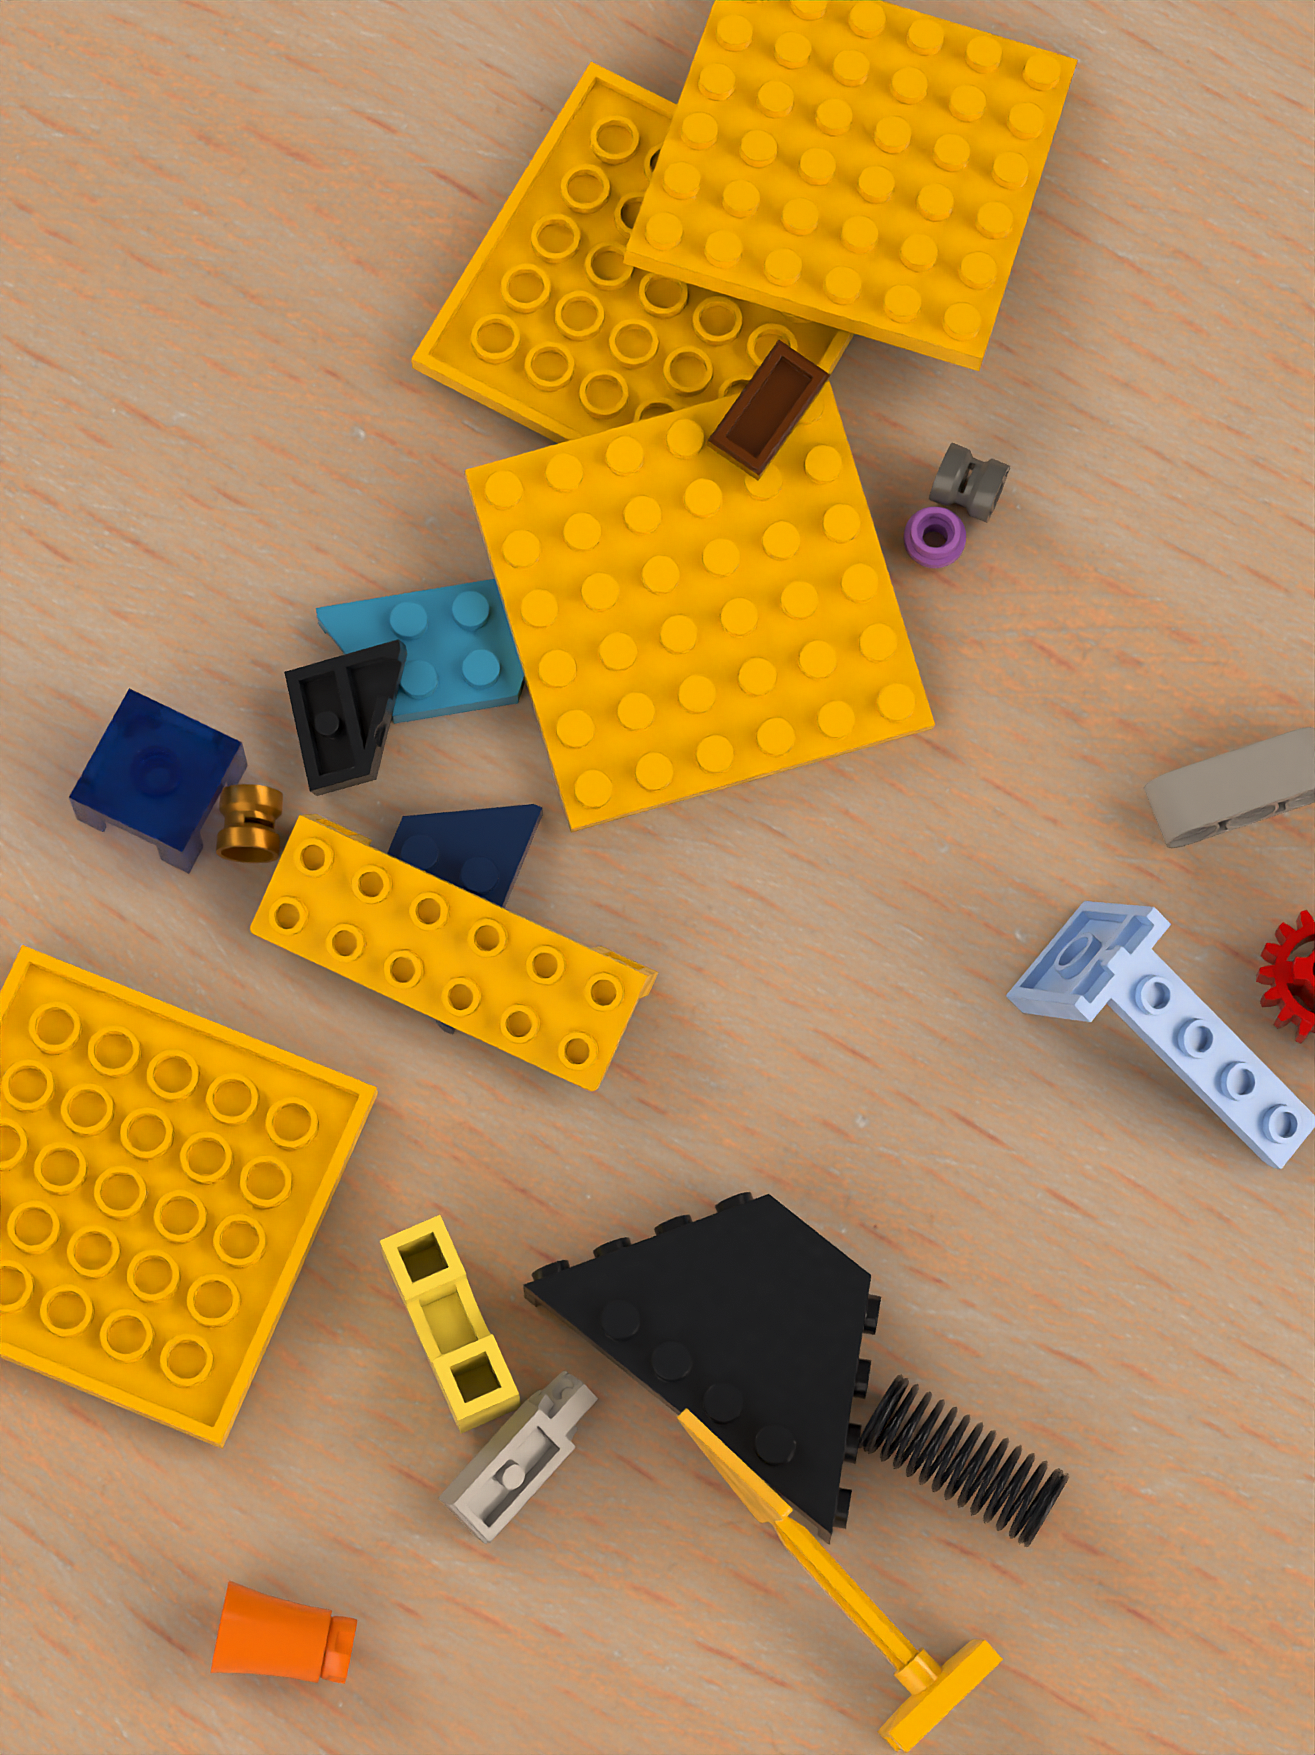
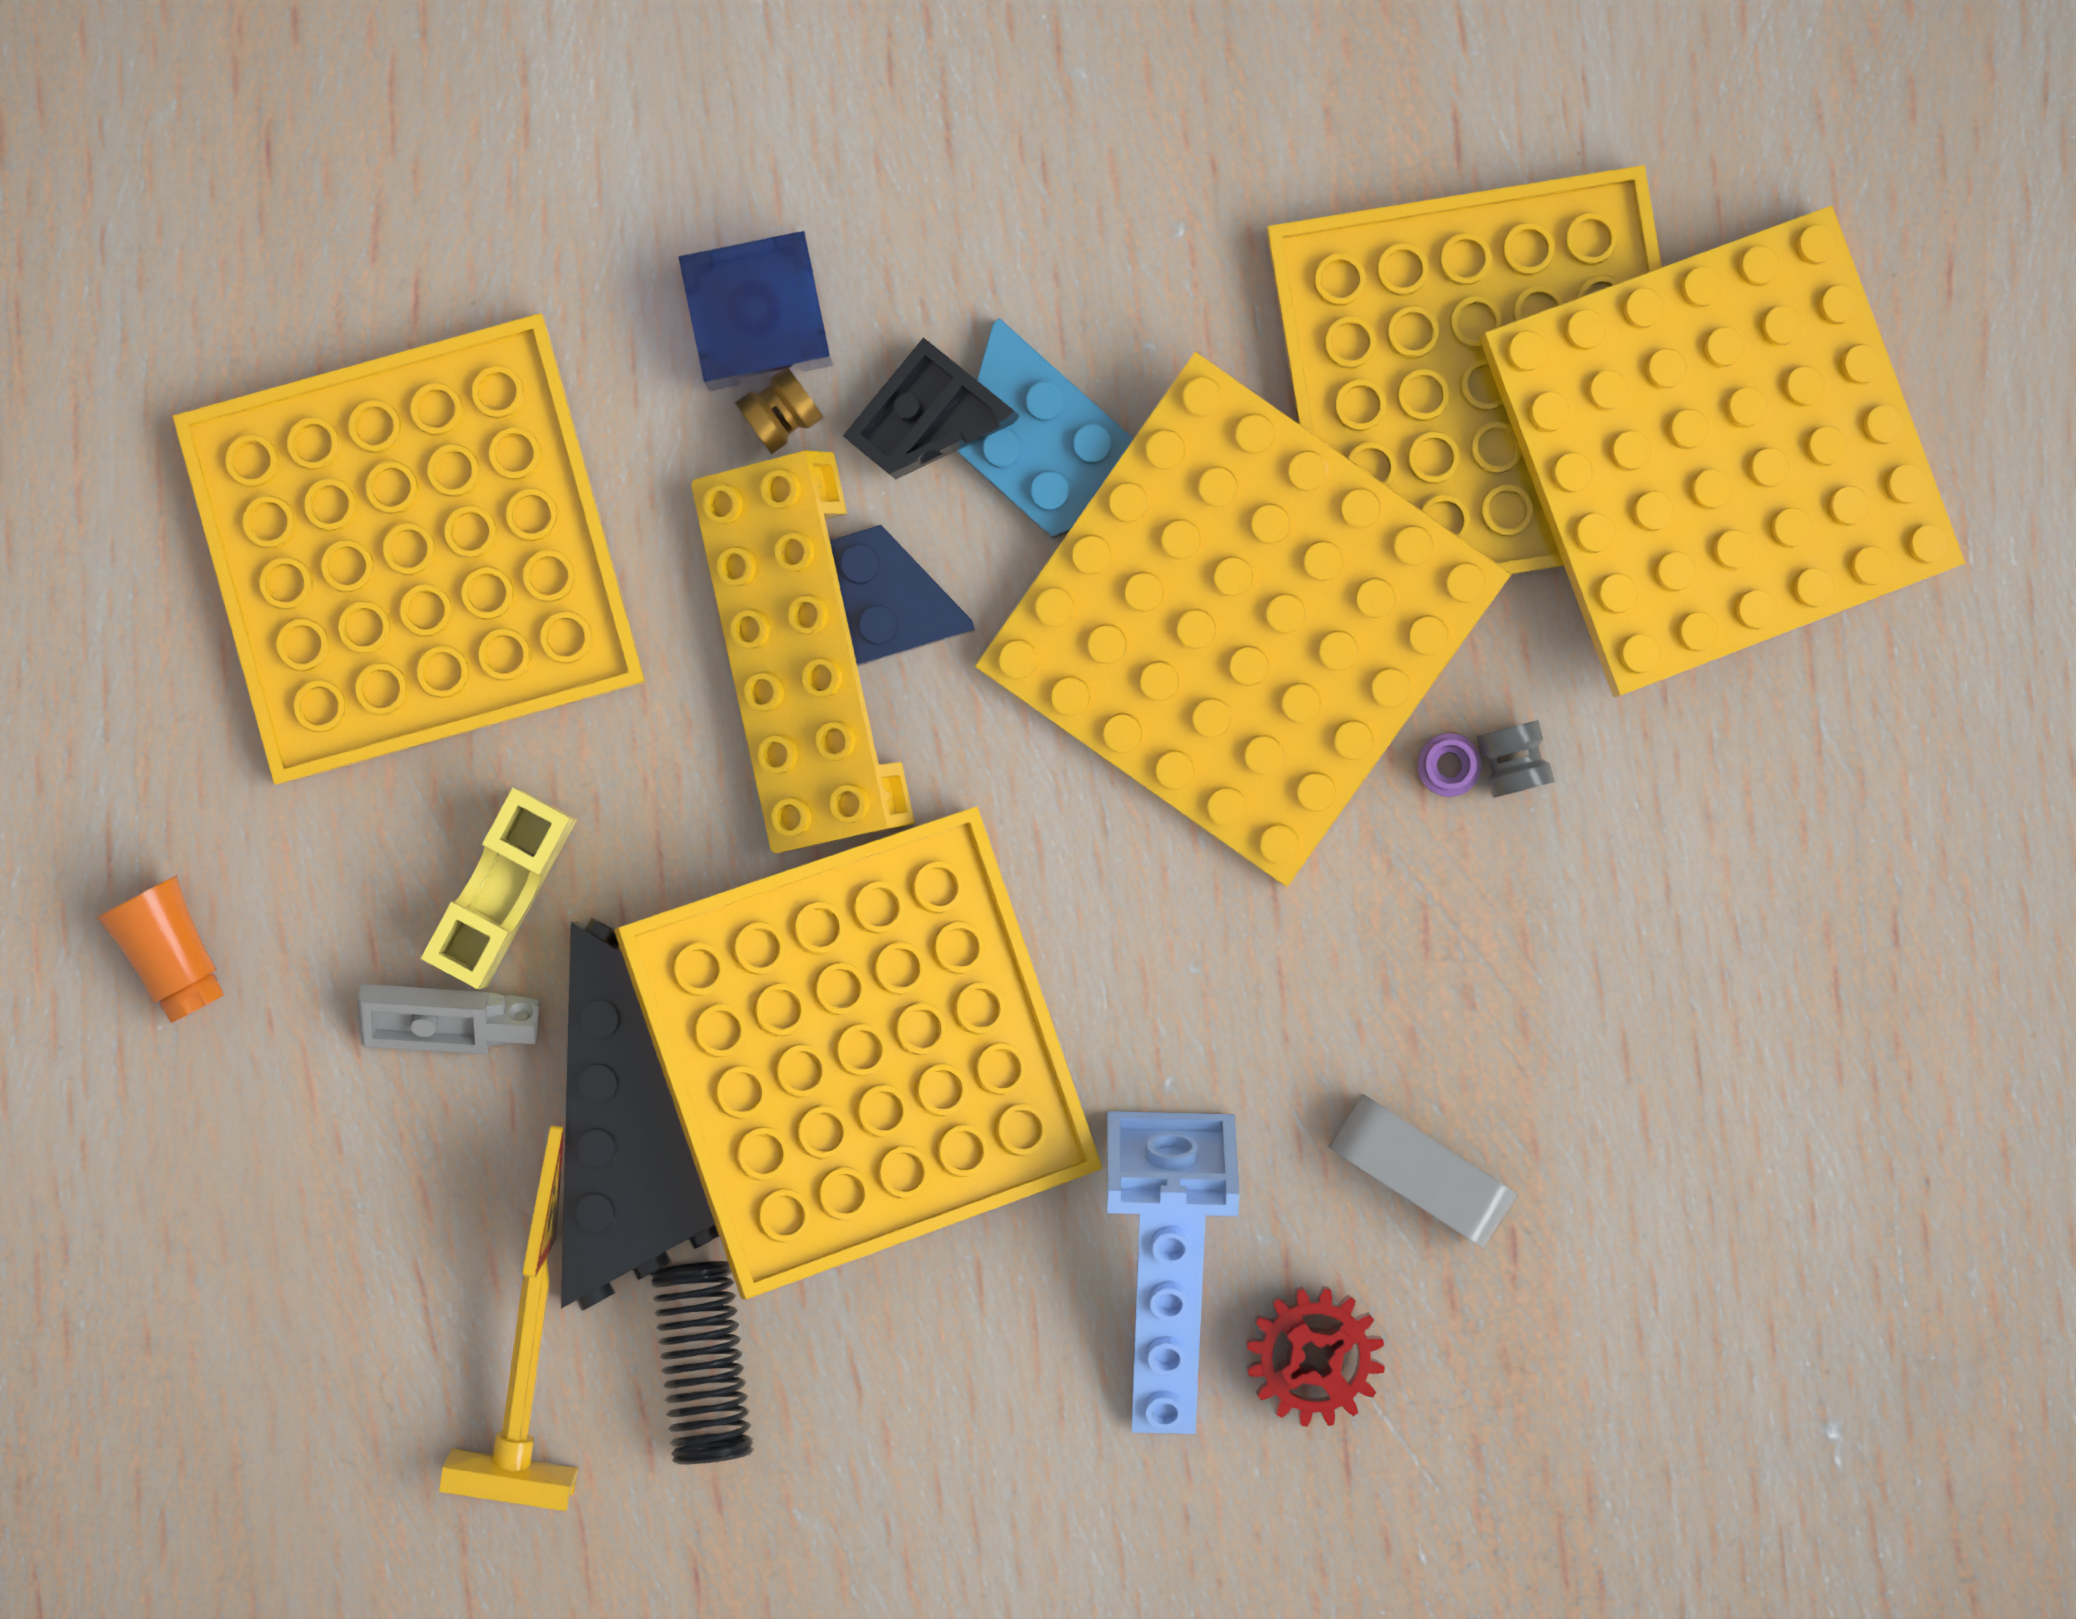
camera: 50 degrees right, 15 degrees up
(768, 410) = (1434, 558): reddish brown tile -> none
(806, 1137) = (858, 1051): none -> yellow plate

